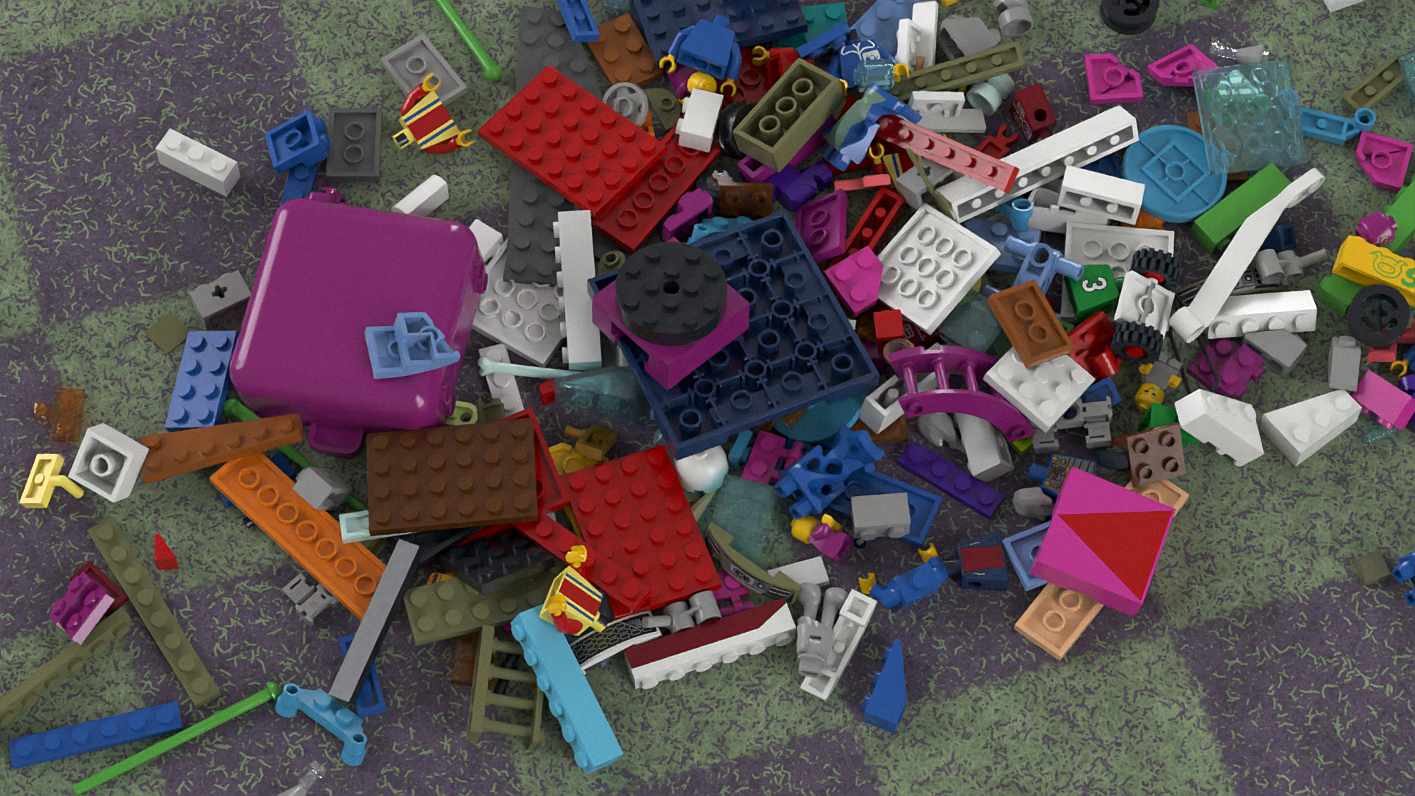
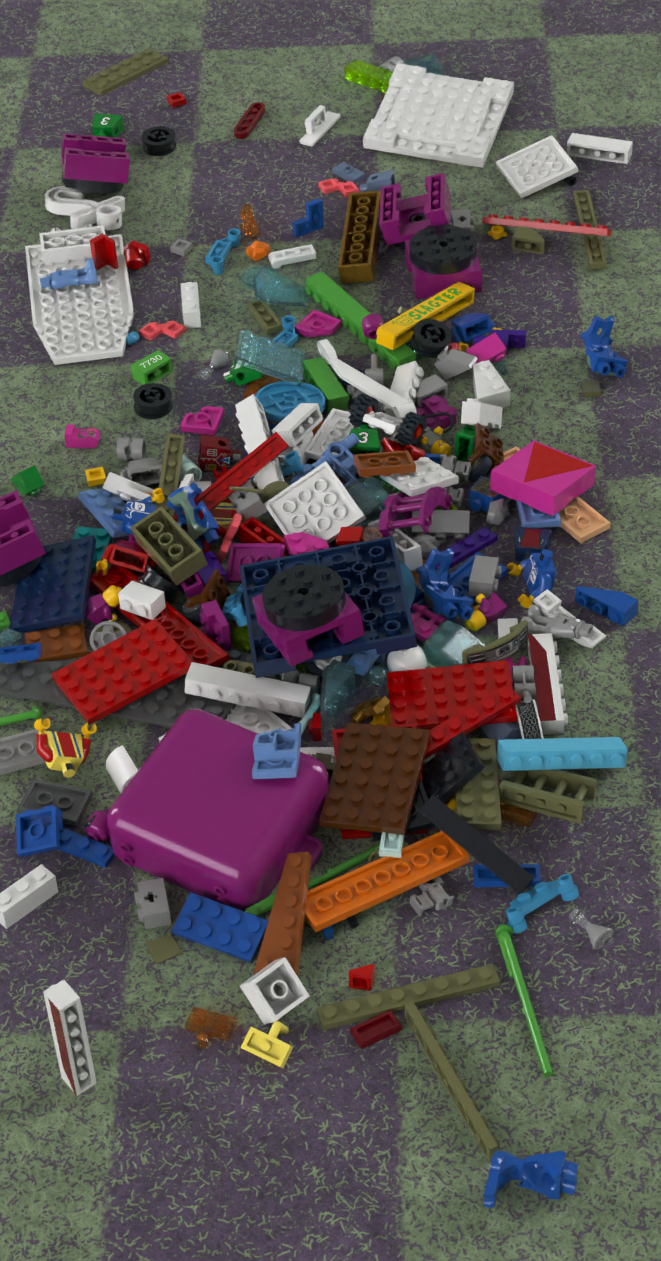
camera: 70 degrees left, 20 degrees down
(81, 607) = (398, 1028): magenta plate -> none
(95, 735) = (504, 1053): blue plate -> none
(322, 488) = (351, 857): light grey brick -> none
(572, 599) = (500, 725): torso -> none
(707, 49) = (93, 578): blue torso -> none
(818, 46) = (116, 530): blue plate -> none
(875, 70) = (155, 500): clear light blue brick -> none
(1178, 67) = (213, 386): dark pink plate -> none

